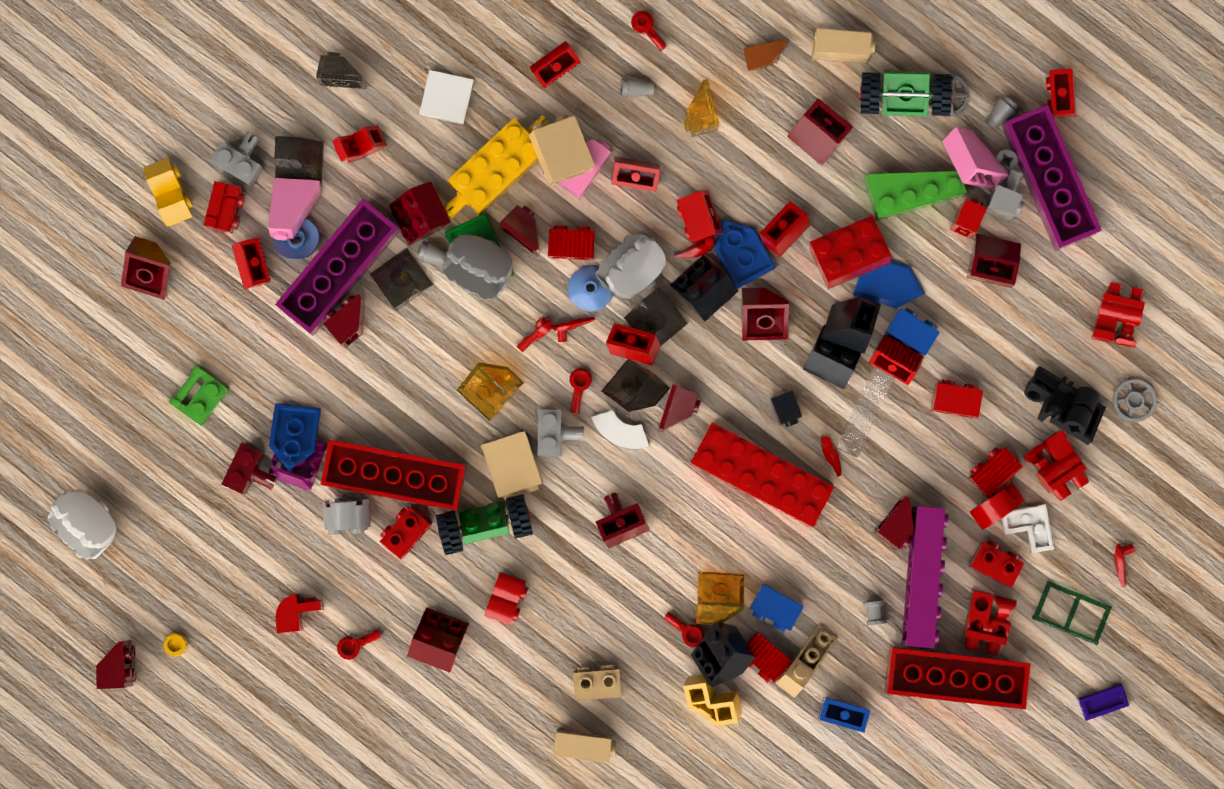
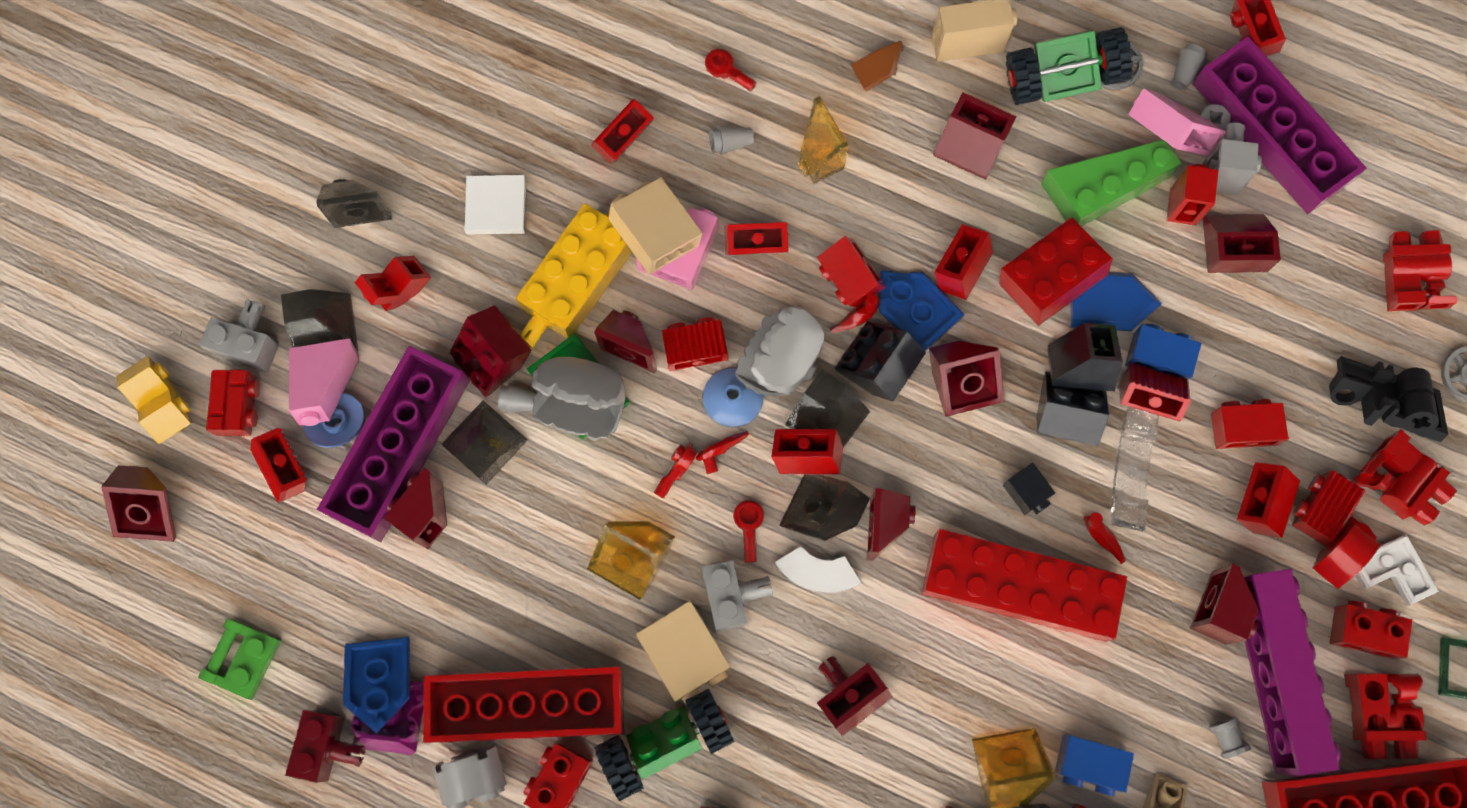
camera: 10 degrees left, 10 degrees down
(953, 456) = (1268, 499): none -> red brick

